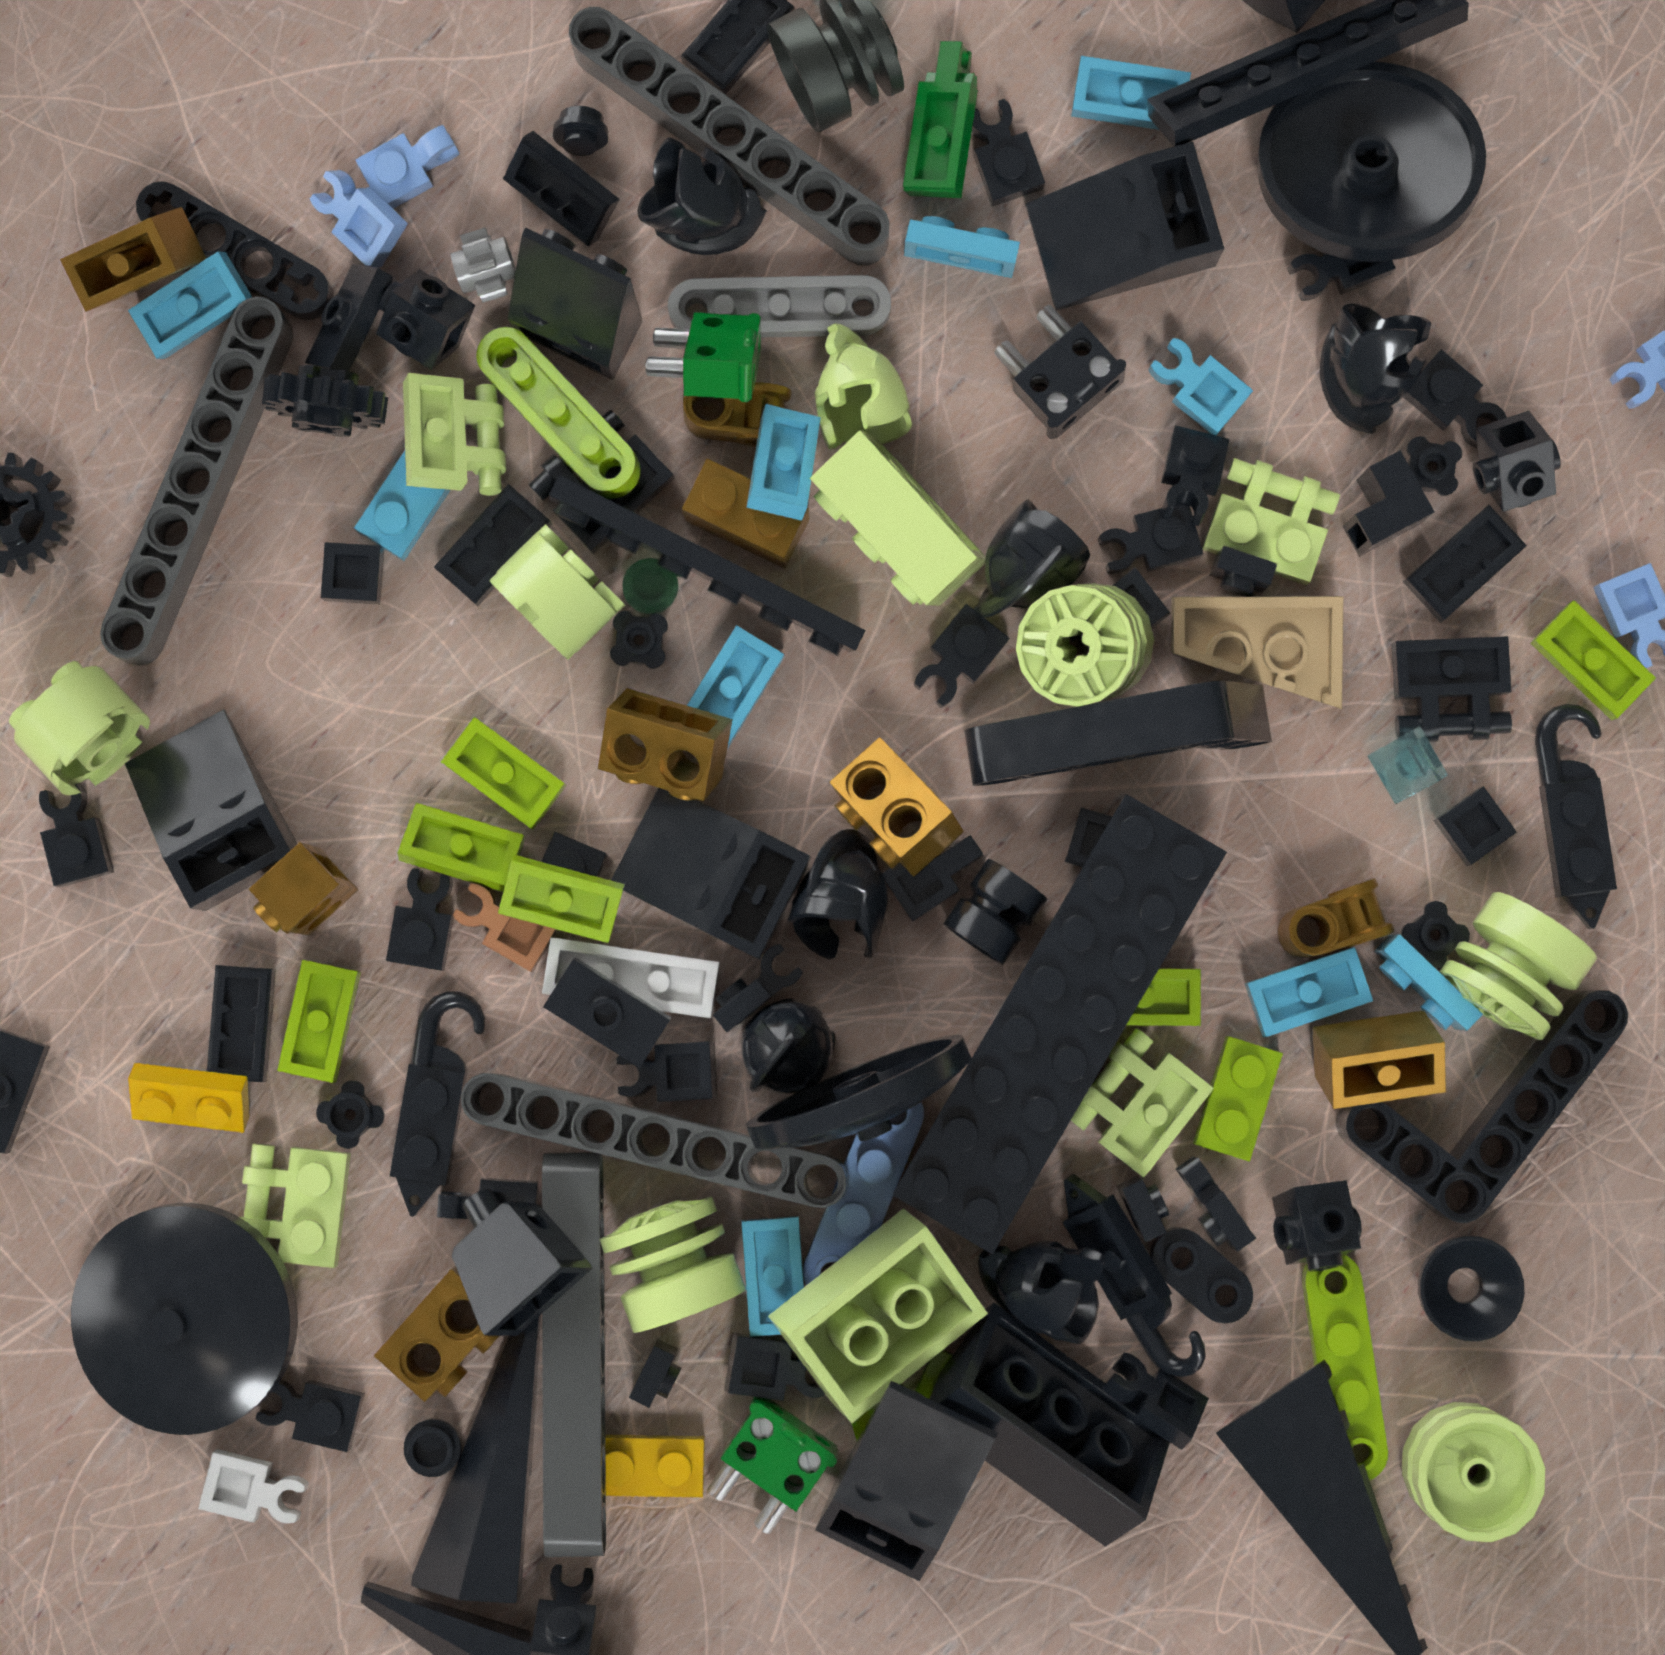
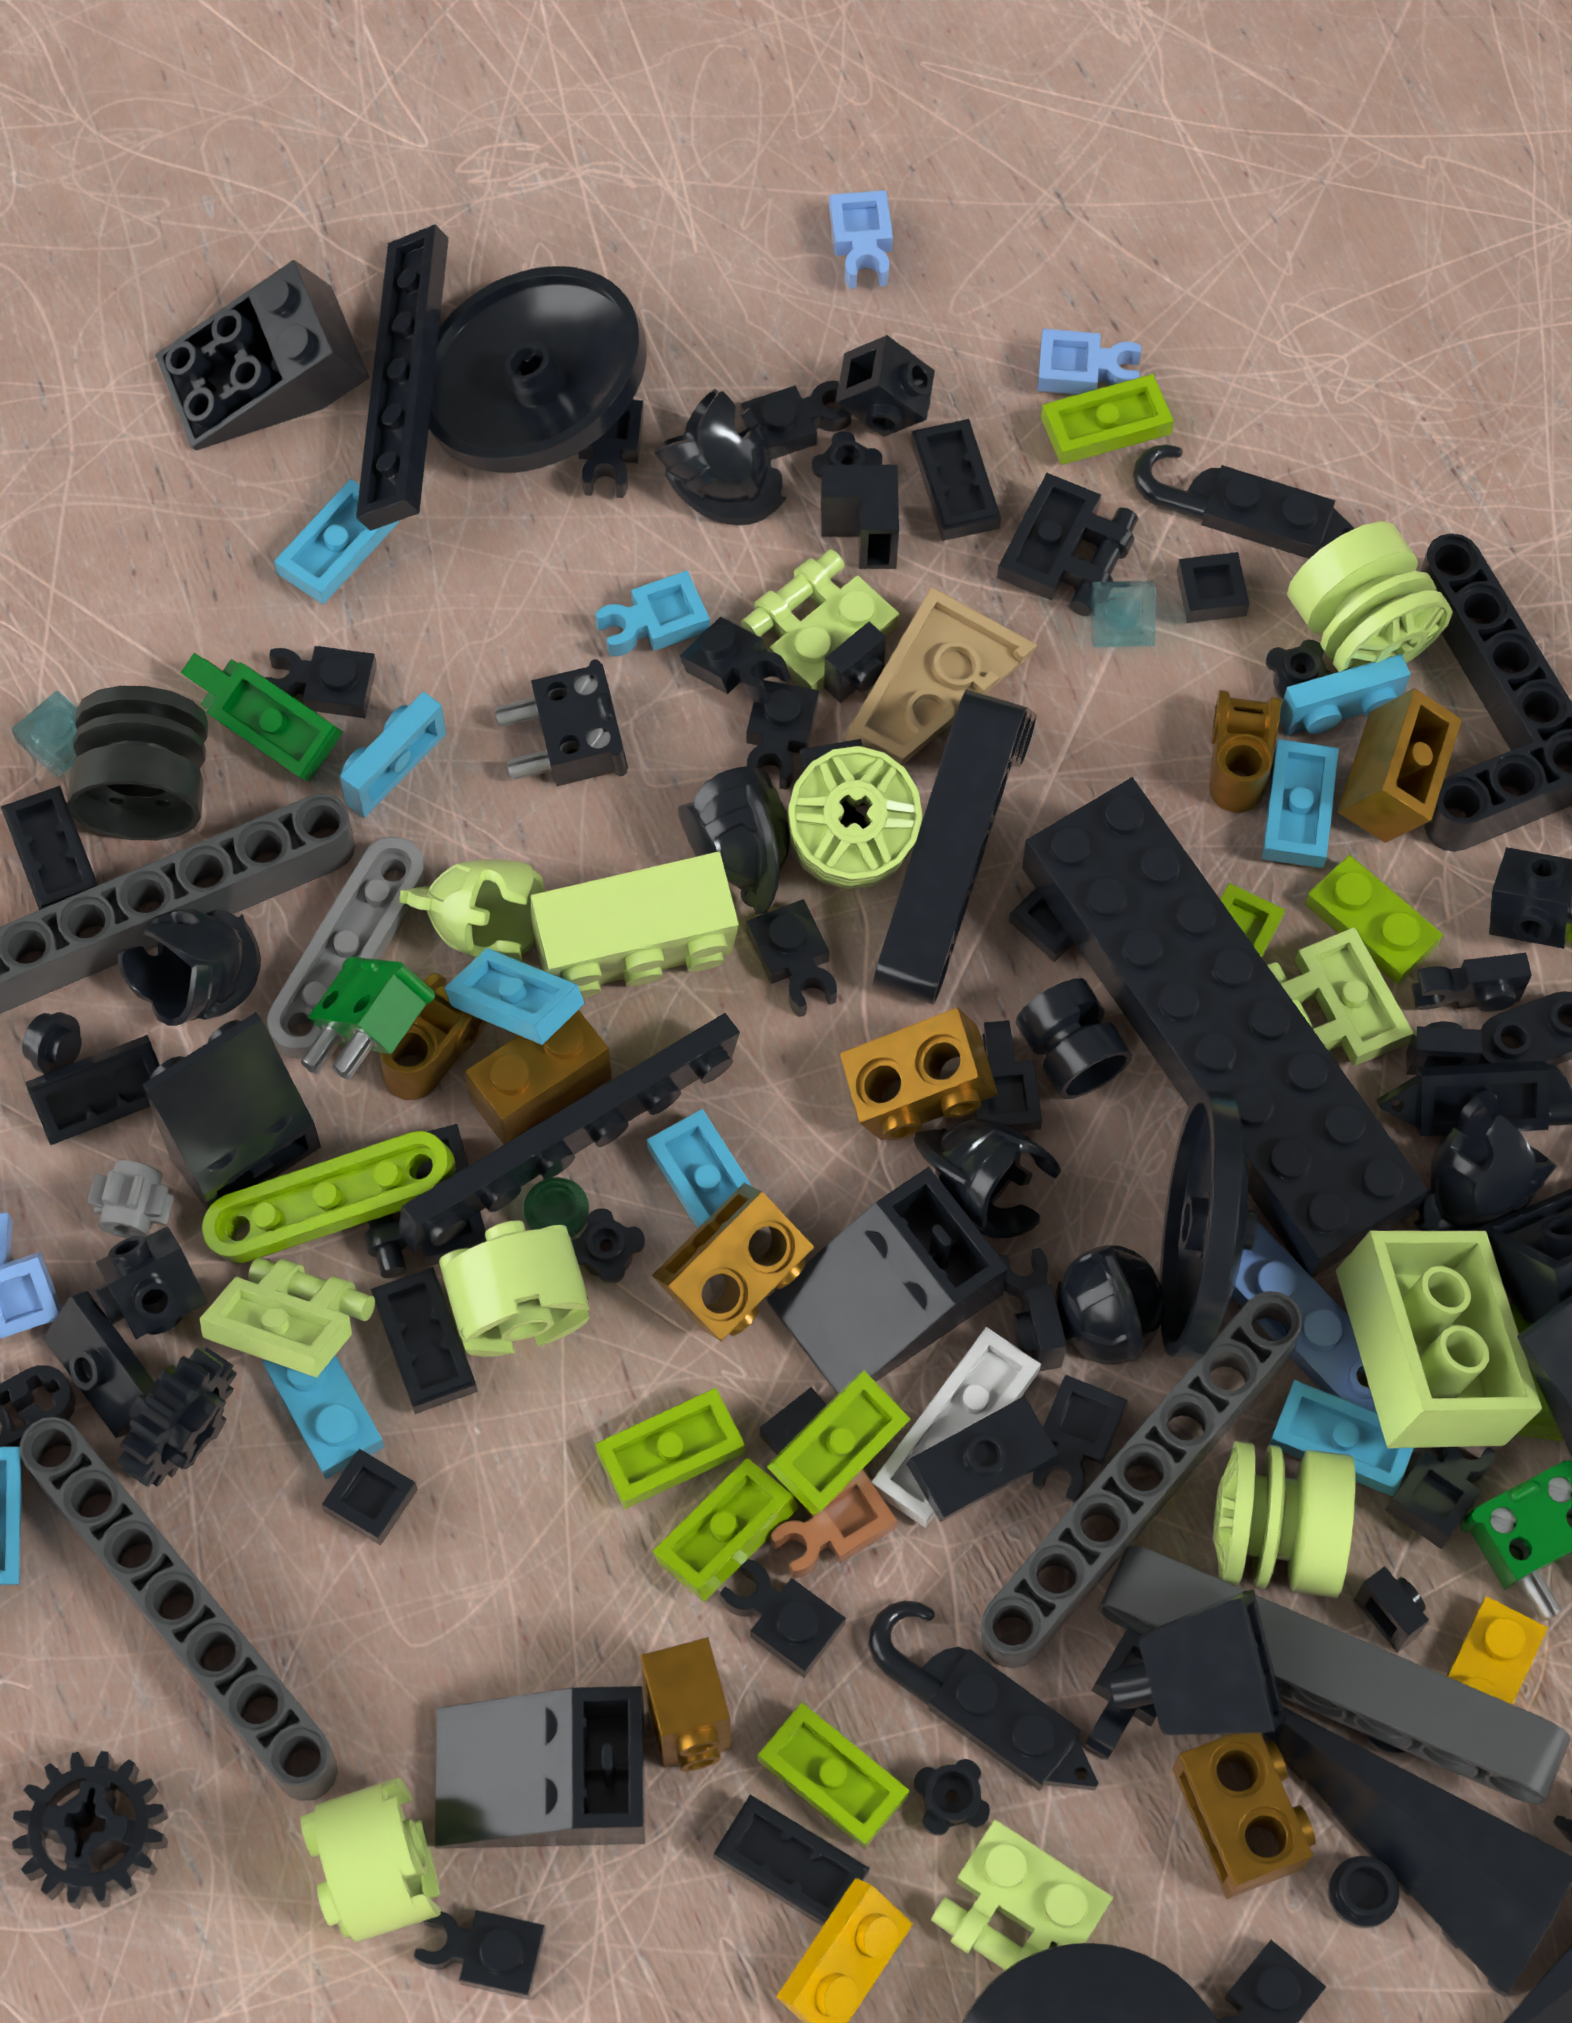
camera: 65 degrees left, 20 degrees down
(1126, 227) = (465, 599): black slope -> none

